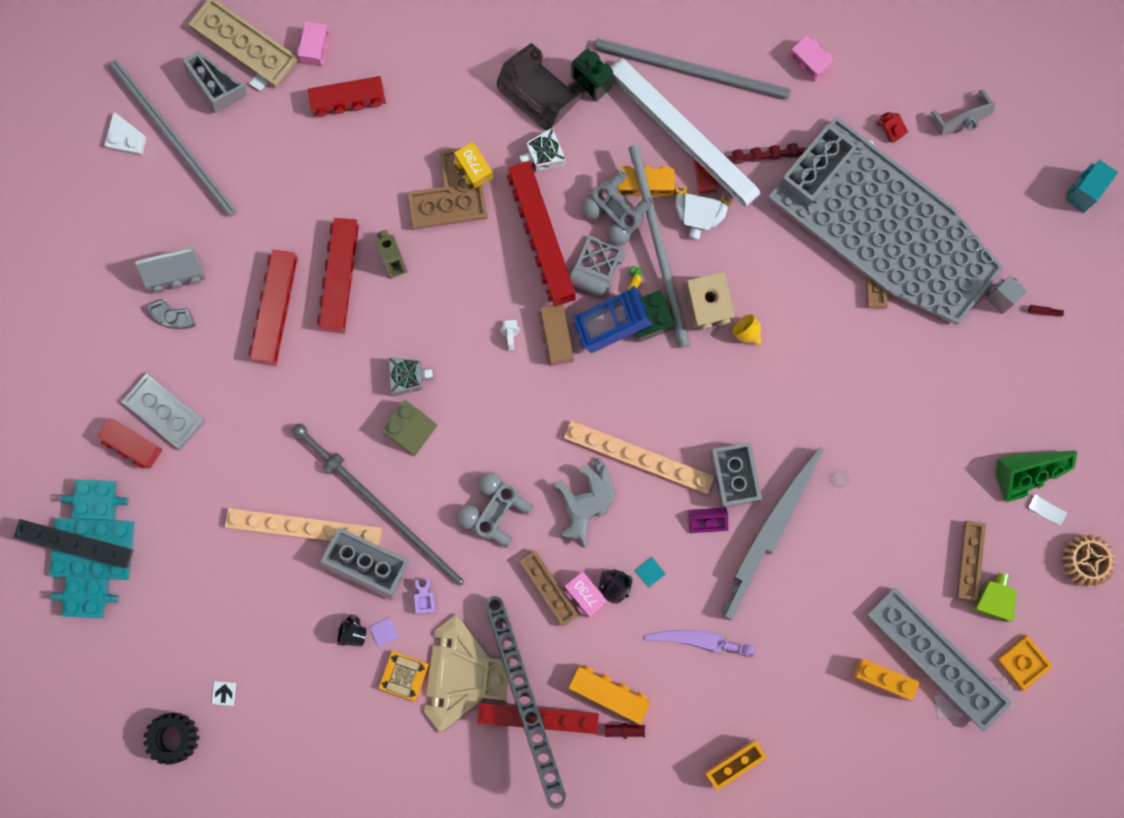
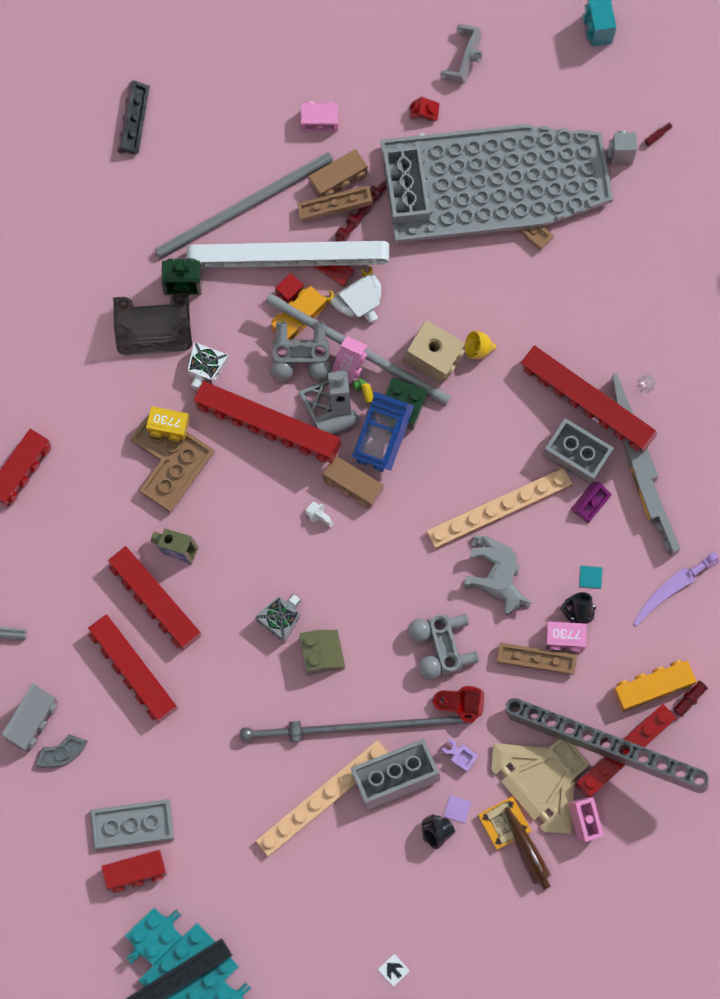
camera: 50 degrees left, 5 degrees down
(397, 715) = (529, 853): none -> reddish brown piece
(458, 734) = (585, 819): none -> bright pink brick
(465, 565) = (465, 702): none -> red piece
(616, 259) = (339, 387): none -> light grey torso
(644, 247) = (350, 357): none -> bright pink brick
(658, 156) = (289, 288): none -> red brick
(755, 129) = (335, 203): none -> medium nougat plate
(780, 111) = (338, 174): none -> medium nougat brick
(783, 447) = (588, 398): none -> red brick

